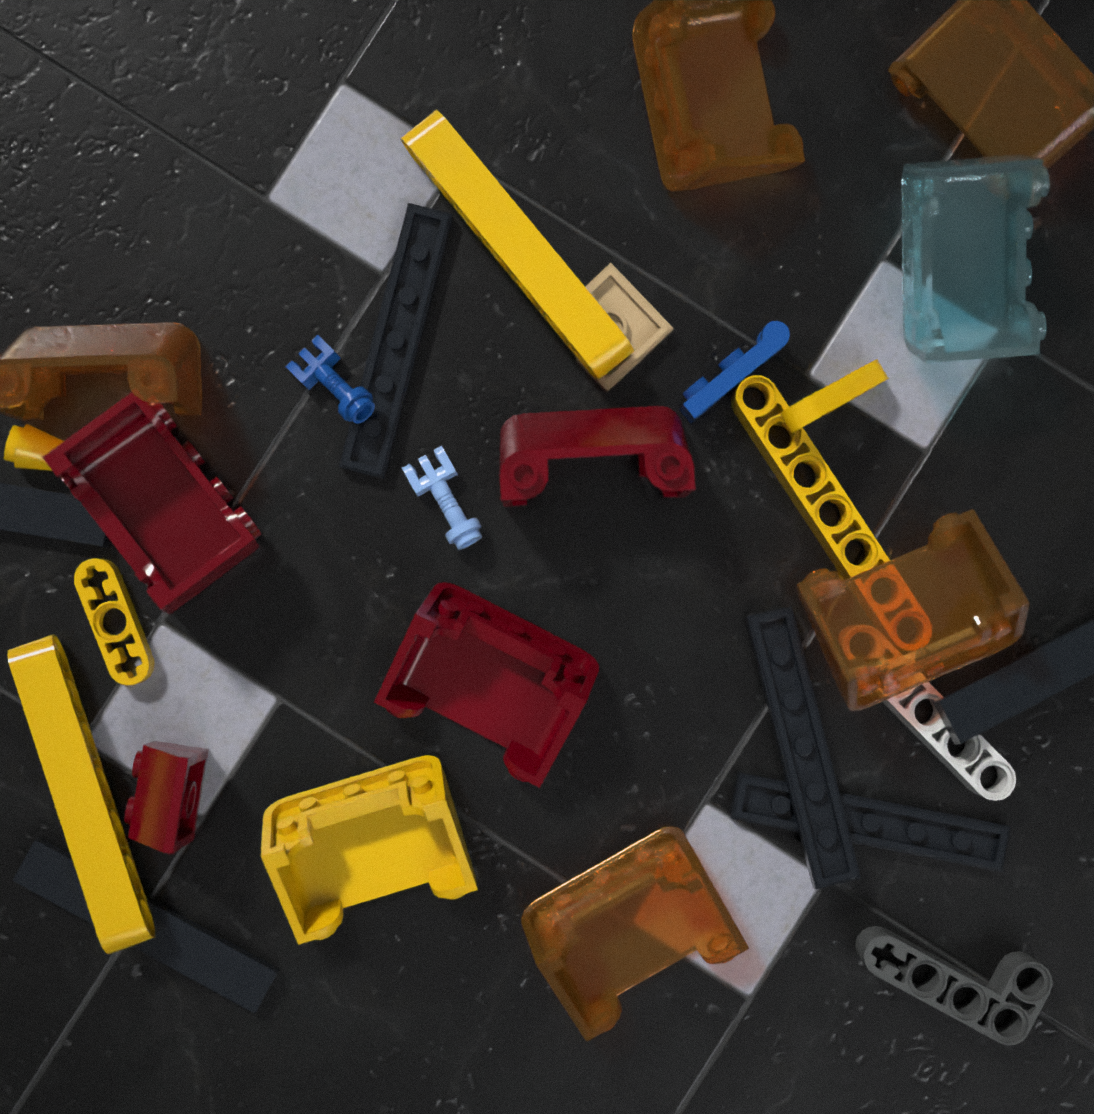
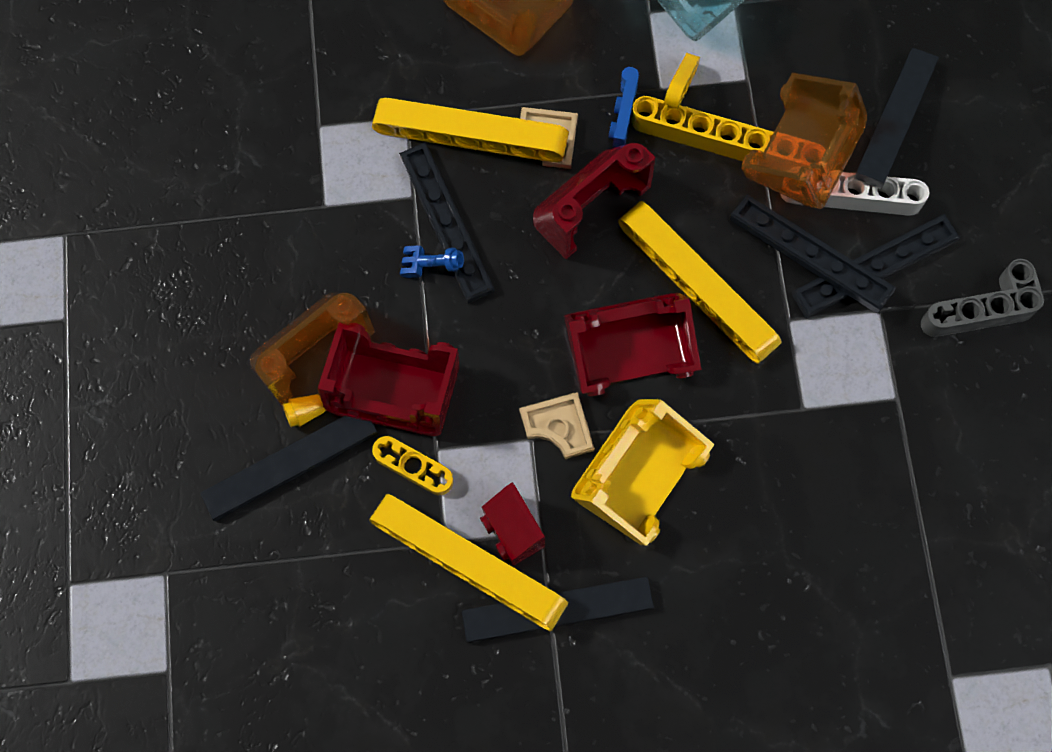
camera: 35 degrees left, 15 degrees down
(328, 709) = (559, 422): none -> tan tile
(462, 531) = (556, 282): light blue hinge -> none
(626, 925) = (806, 402): clear orange windscreen -> none
(635, 670) = (699, 282): none -> yellow beam

